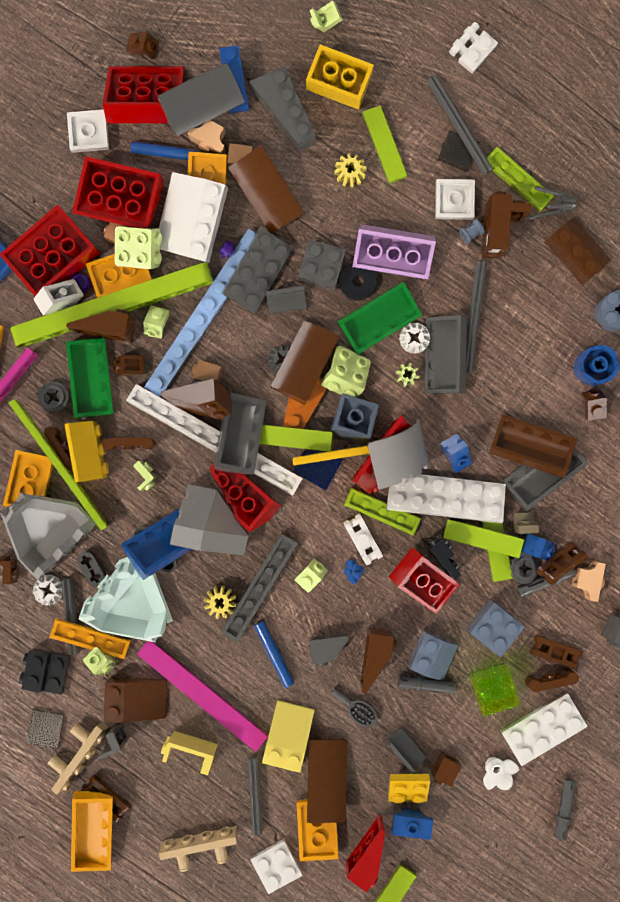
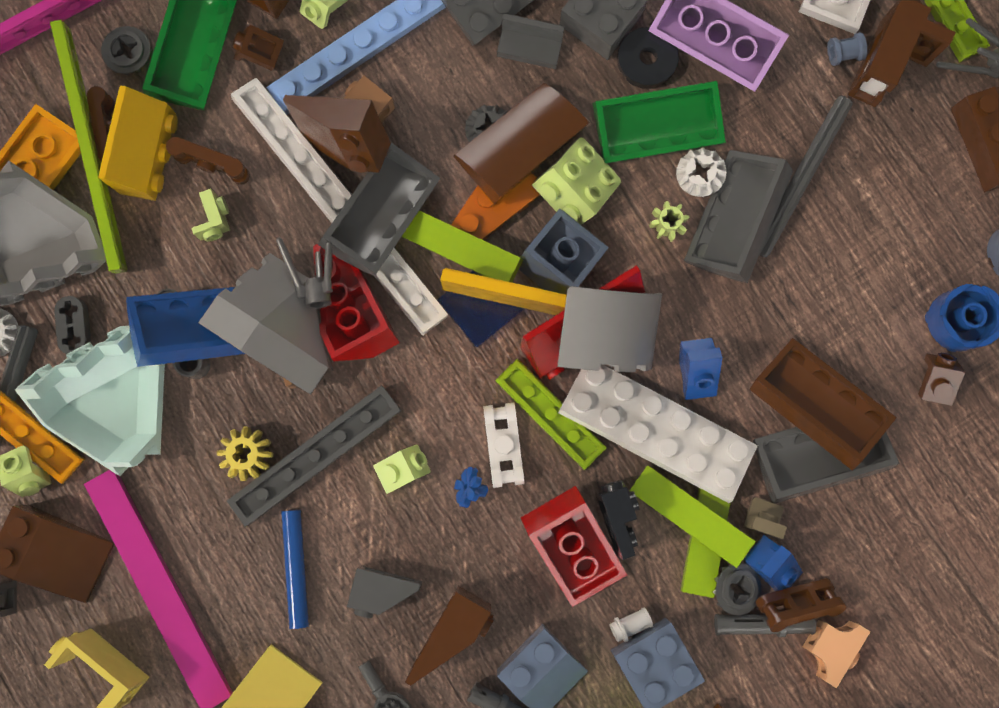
camera: 15 degrees right, 5 degrees down
(225, 495) = (317, 289): none -> flat silver plant
(472, 611) = (631, 625): none -> white pin

